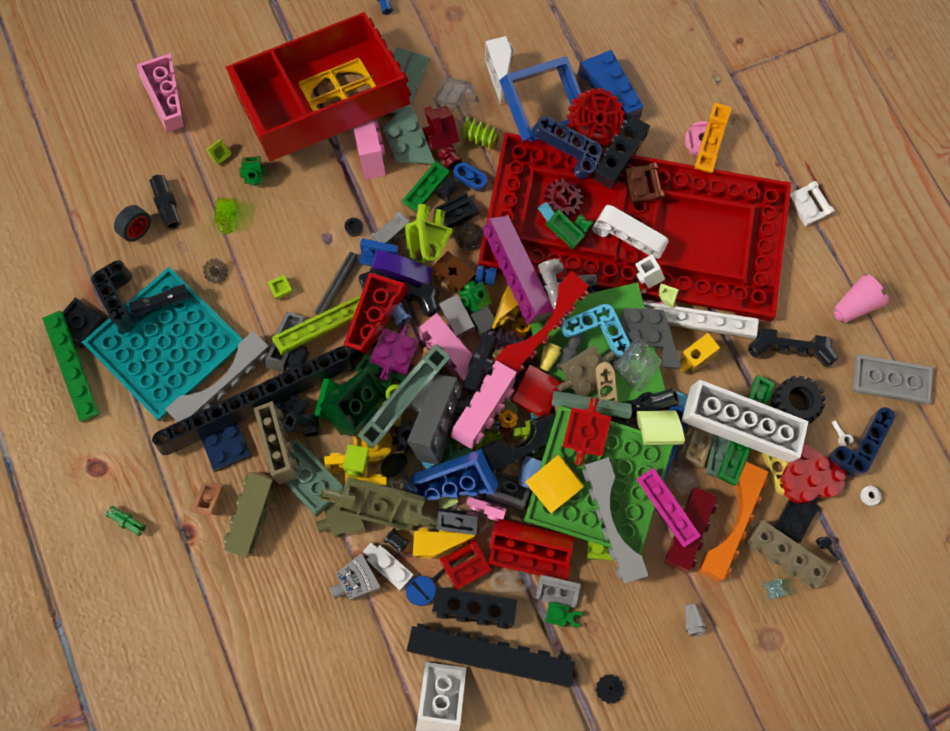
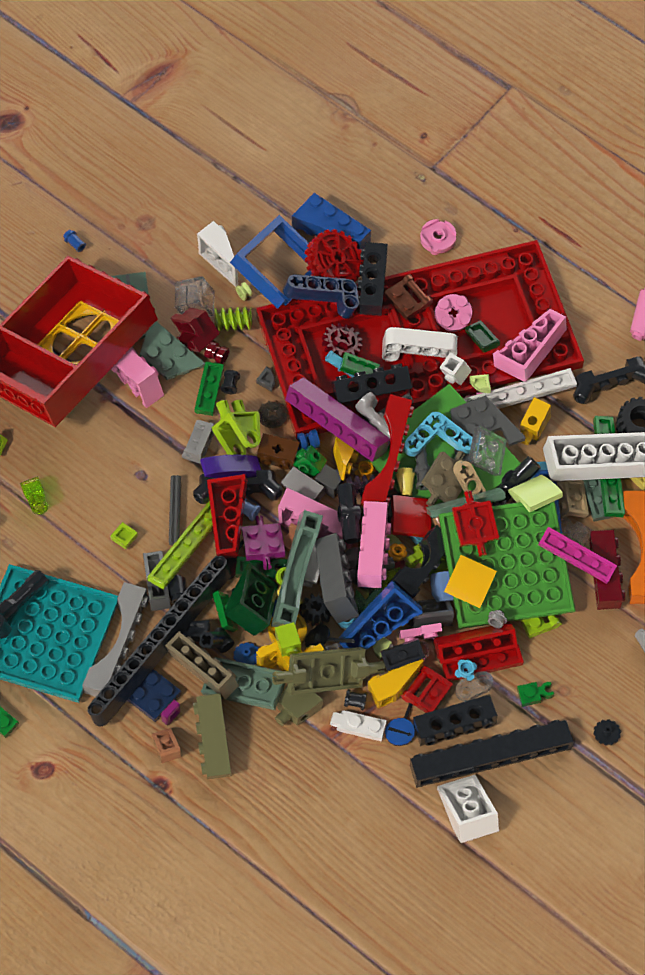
camera: 25 degrees left, 10 degrees down
(125, 520) = (99, 799): green pin -> none
(215, 270) = (54, 548): clear smoke piece -> none
(229, 471) = (171, 712): none -> magenta tile
(252, 170) = (39, 444): green brick -> none
(324, 447) = (246, 653): none -> blue piece
(353, 227) = (161, 453): black tile -> none
(355, 580) = (339, 748): light grey torso -> none
(369, 247) = (191, 464): blue bracket -> none
(458, 210) = (252, 393): black plate -> none
(472, 176) = (245, 361): blue plate -> none
(481, 201) = (266, 379): none -> dark grey tile
(503, 112) = (243, 291): none -> yellowish green bush
(515, 564) = (466, 664): none -> medium azure plate
(557, 591) = (519, 673): light grey hinge -> none
(561, 531) = (497, 618): none -> light grey plate
(584, 225) = (373, 356): green wheel -> none
(593, 262) = (401, 382): none -> black brick
(601, 478) = (566, 615): light grey arch -> none
(684, 225) = (447, 321): none -> bright pink plate
(693, 251) = (482, 336): none -> dark green tile
(712, 137) = (447, 231): light orange slope -> none
(727, 284) = (531, 346): none -> bright pink wedge
(806, 207) = (559, 255): white plate -> none

